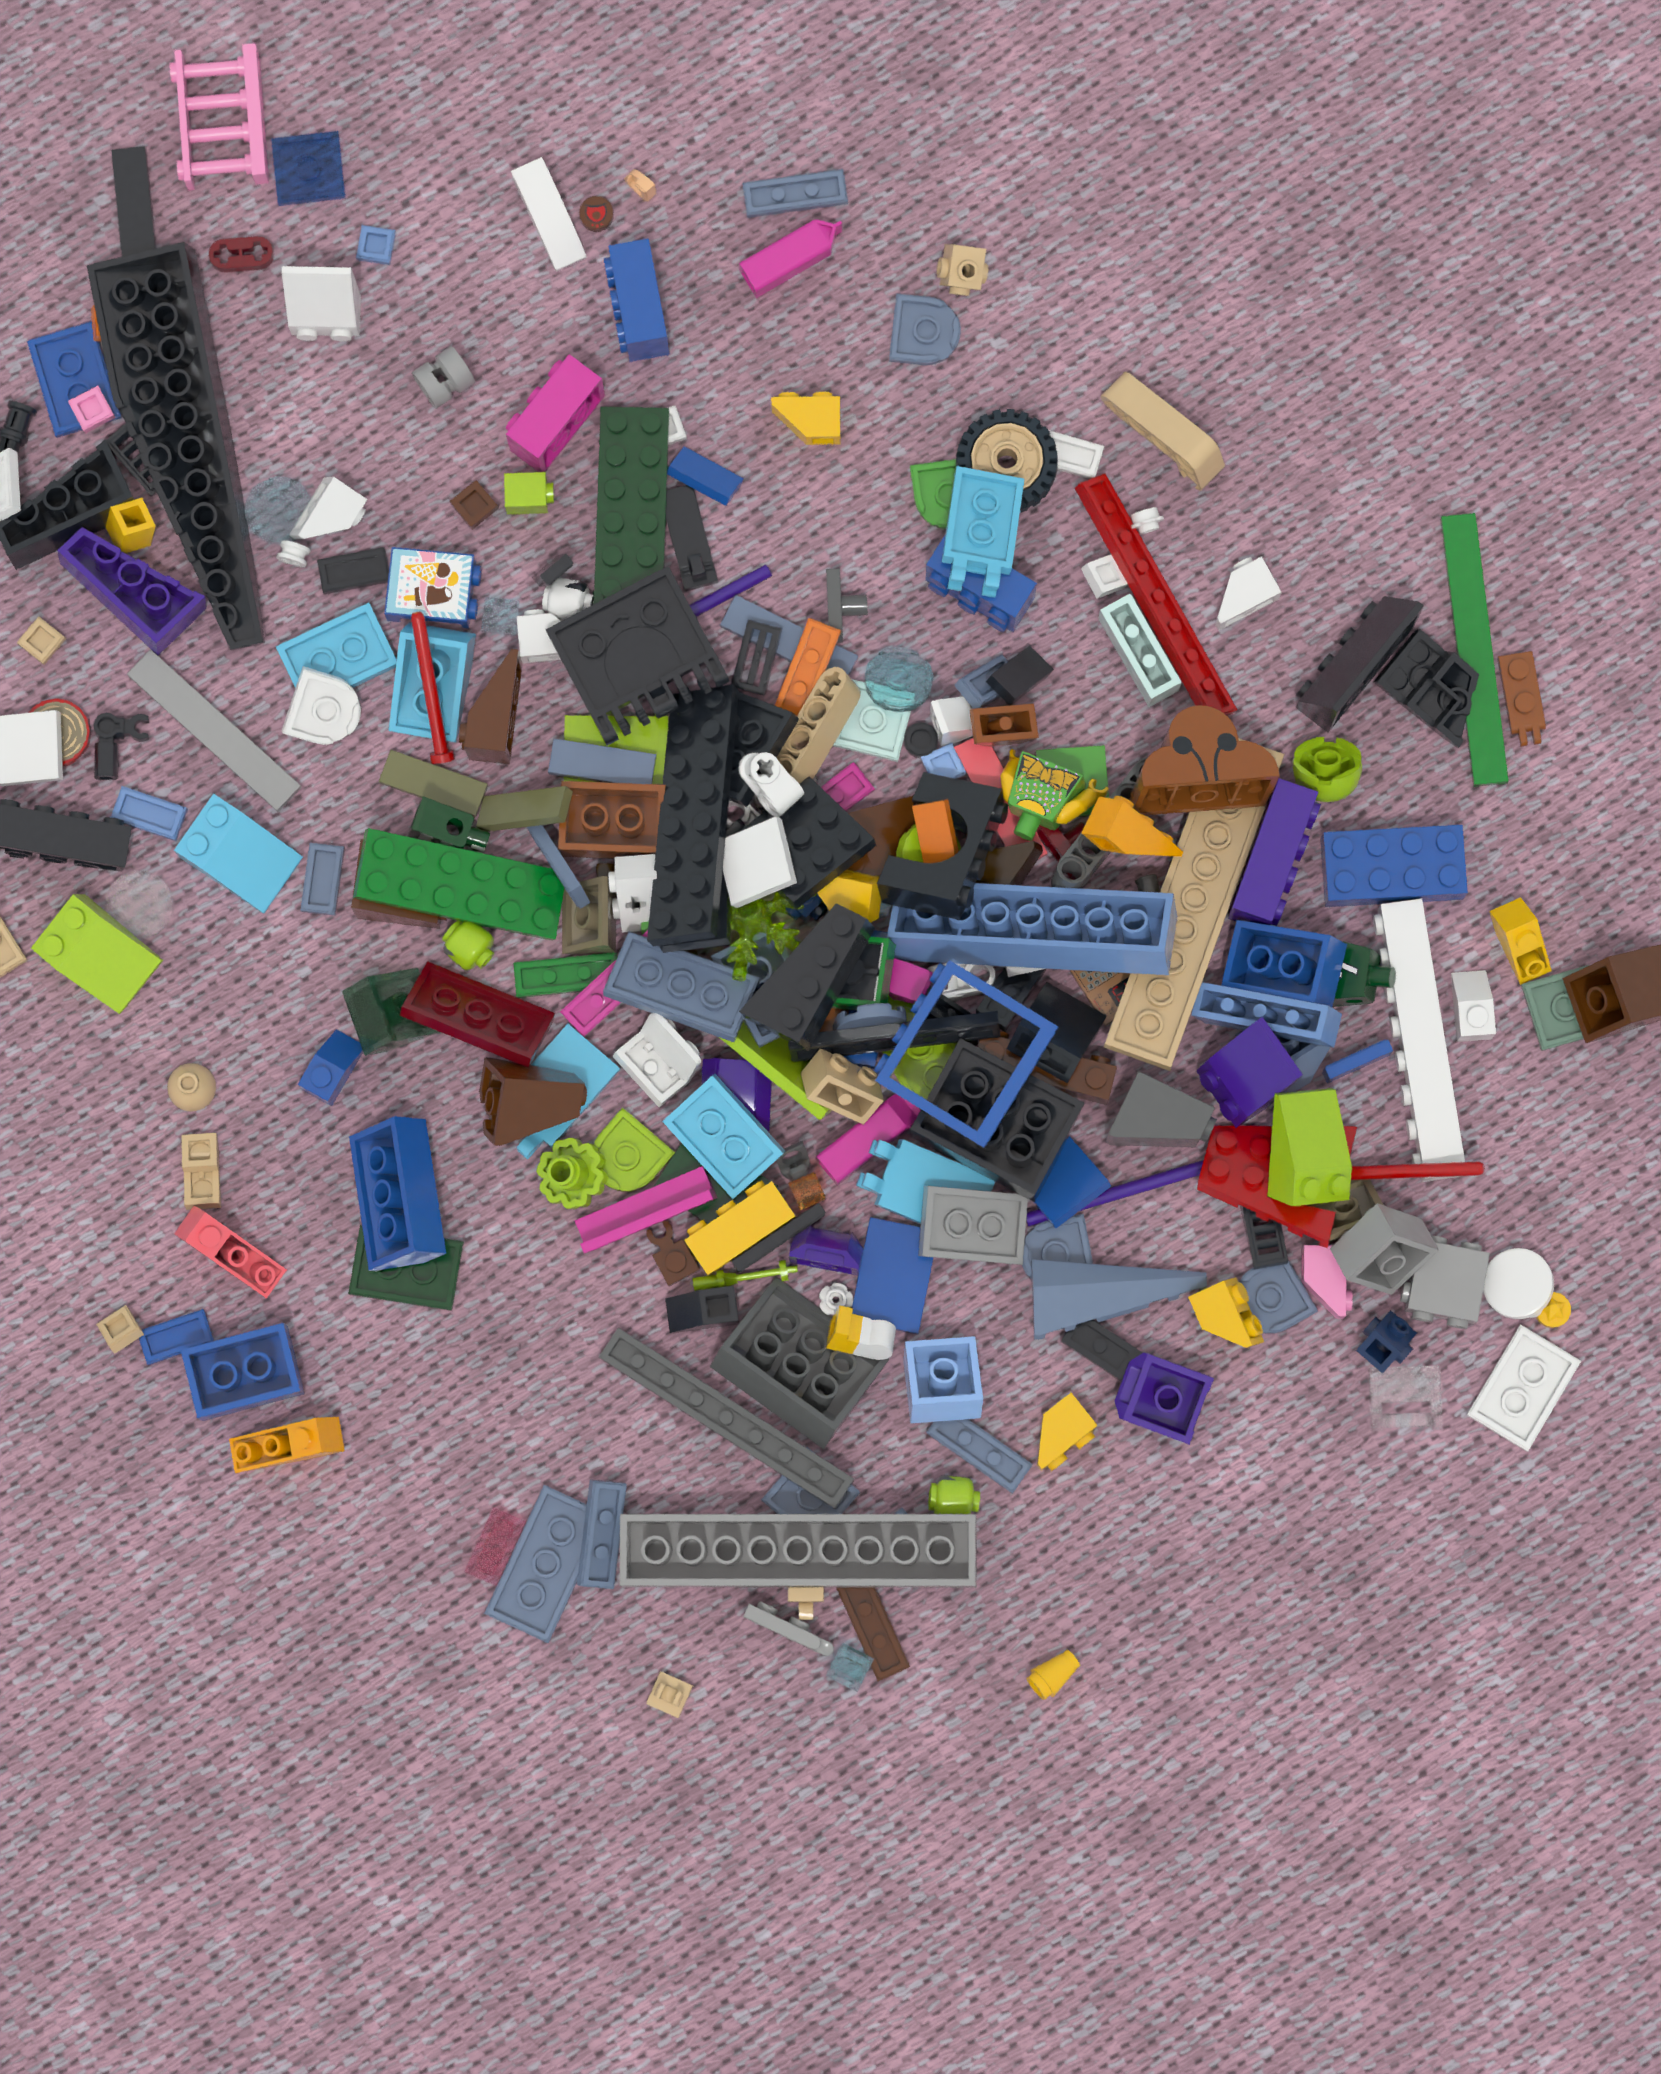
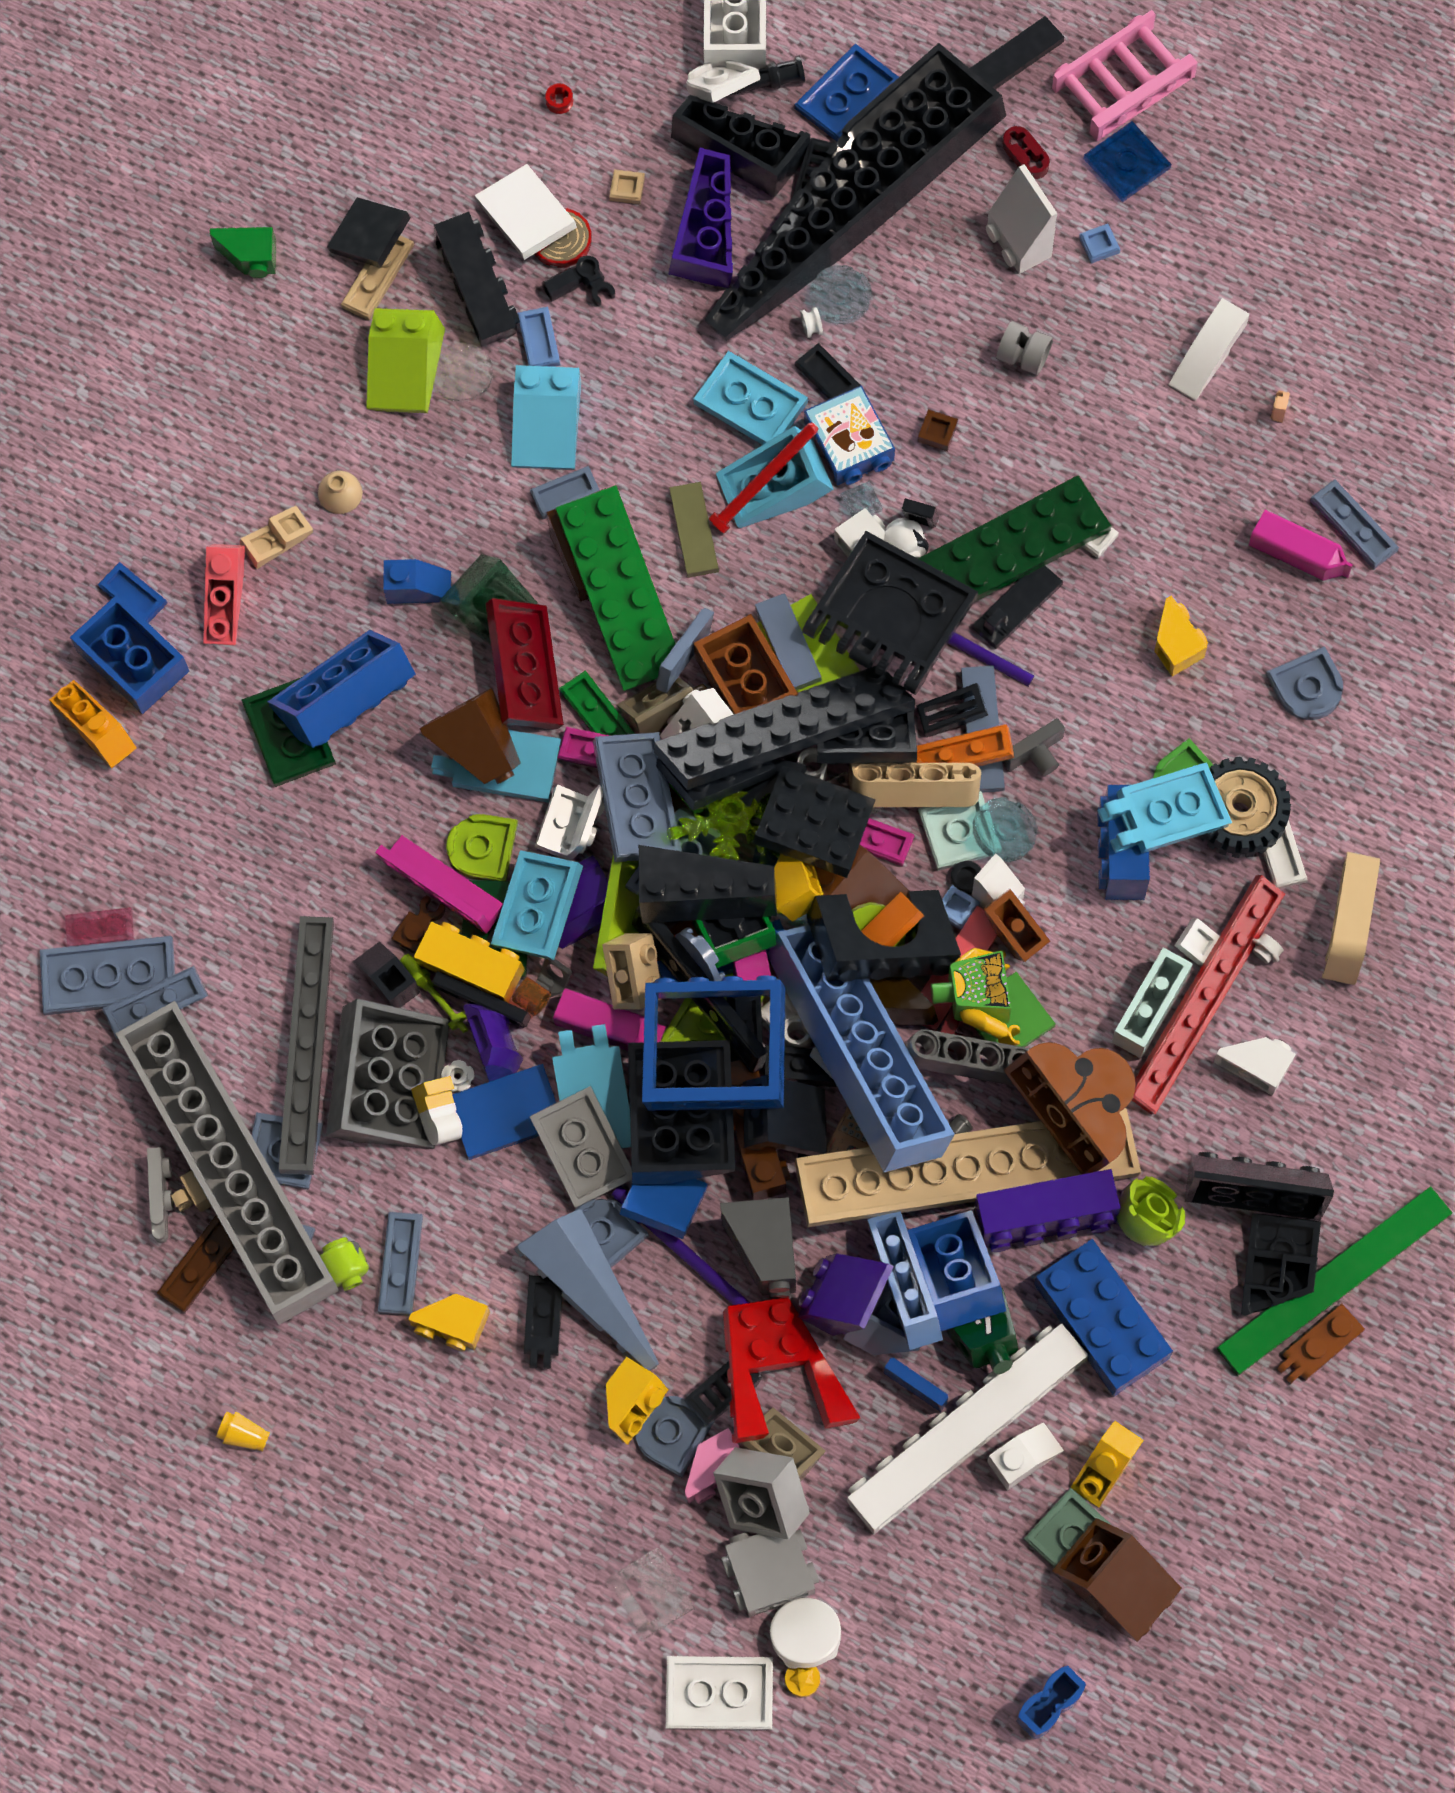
camera: 60 degrees right, 10 degrees down
(91, 409) = (830, 115): bright pink tile -> none
(120, 1329) = (114, 548): tan tile -> none
(130, 525) = (755, 192): yellow brick -> none
(214, 730) = (634, 348): light grey tile -> none
(322, 708) = (700, 411): white tile -> none
(329, 510) = (862, 327): white slope -> none
(431, 825) = (658, 543): dark green torso -> none
(468, 945) = (577, 626): lime head -> none
(493, 716) = (777, 535): reddish brown slope -> none
(524, 809) = (712, 601): olive tile -> none
(527, 493) = (972, 462): lime brick -> none
(554, 413) = (1048, 442): dark pink brick -> none
(572, 1173) = (439, 811): lime plant -> none
(596, 214) = (1234, 387): reddish brown tile -> none
(636, 300) = (1182, 450): blue brick -> none
(669, 1694) = (53, 1132): tan tile -> none
(705, 476) = (1075, 587): blue tile -> none
(757, 862) = (772, 790): white tile -> none
(773, 787) = (845, 771): white piece -> none
(849, 1667) = (155, 1262): clear light blue tile -> none
(943, 1379) = (437, 1195): light blue brick -> none
(973, 264) = (1391, 682): tan brick -> none
(974, 685) = (1047, 899): sand blue tile -> none
(1019, 675) = (1068, 920): black tile -> none
(1121, 829) = (981, 1061): light orange slope -> none
(1162, 1396) = (528, 1386): dark purple slope -> none
(1308, 1149) = (809, 1378): lime slope -> none
(1386, 1341) = (694, 1547): dark blue brick -> none
(1417, 1170) = (810, 1426): red bar -> none

